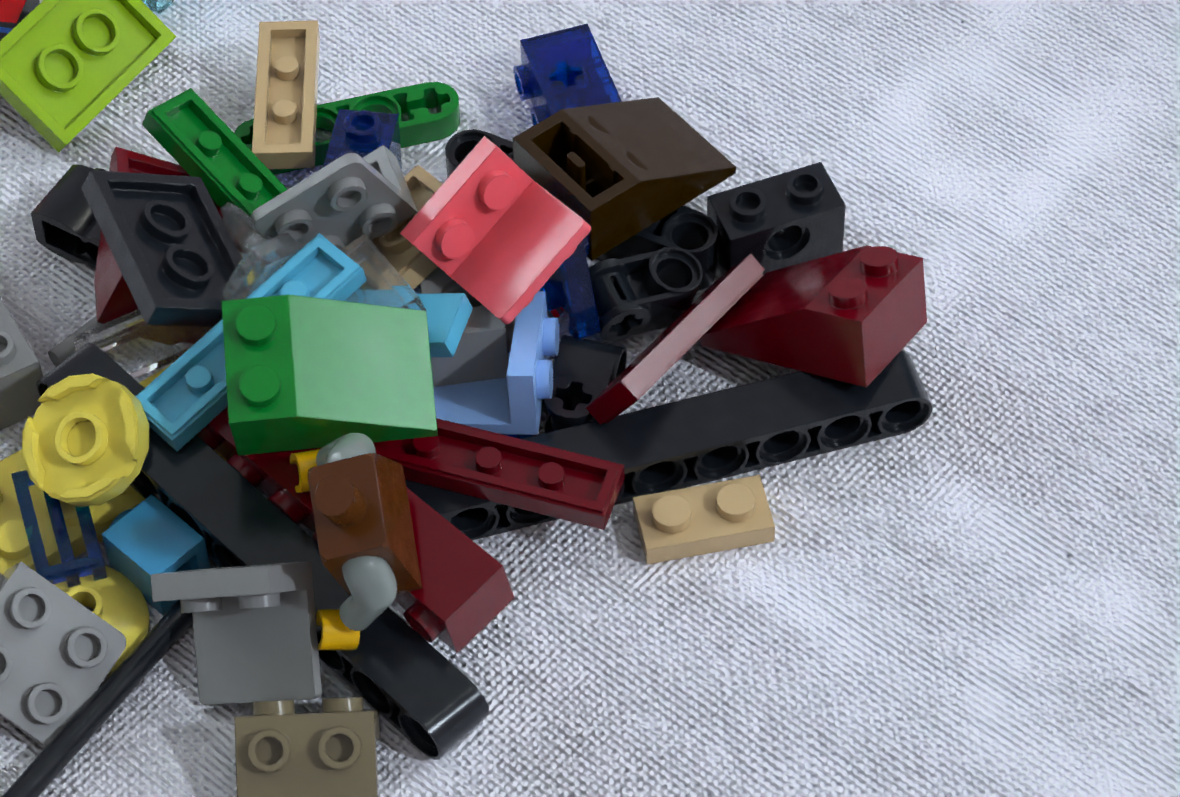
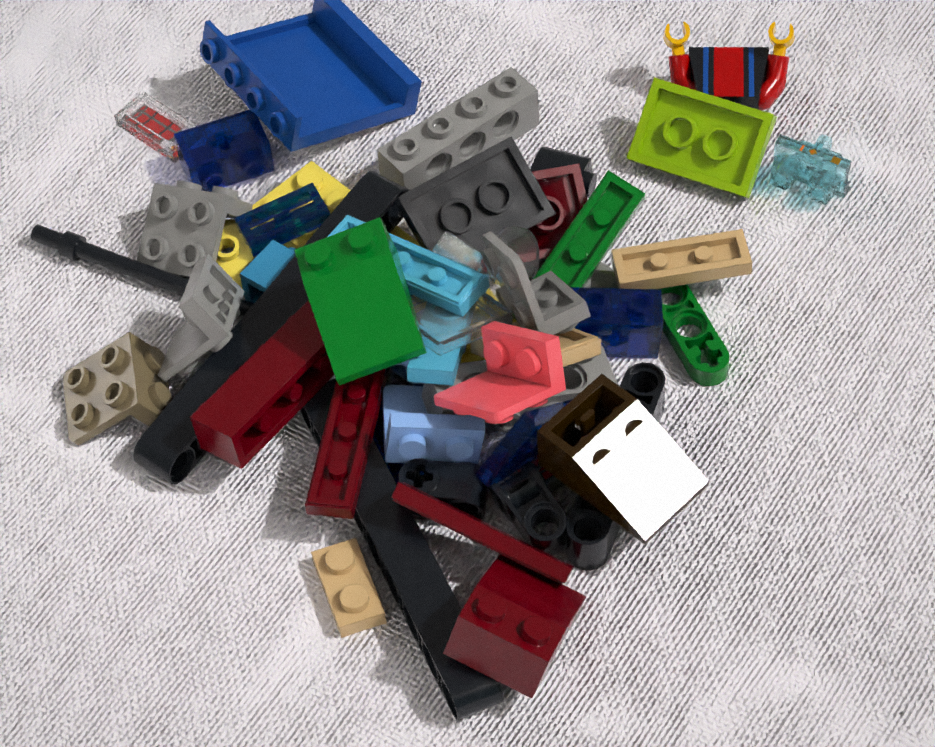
camera: 85 degrees right, 0 degrees up
(85, 440) = (321, 203): light yellow tile -> none
(360, 532) = (235, 338): reddish brown torso -> none
(563, 72) = (737, 440): clear blue brick -> none
(779, 219) = (621, 590): black brick -> none

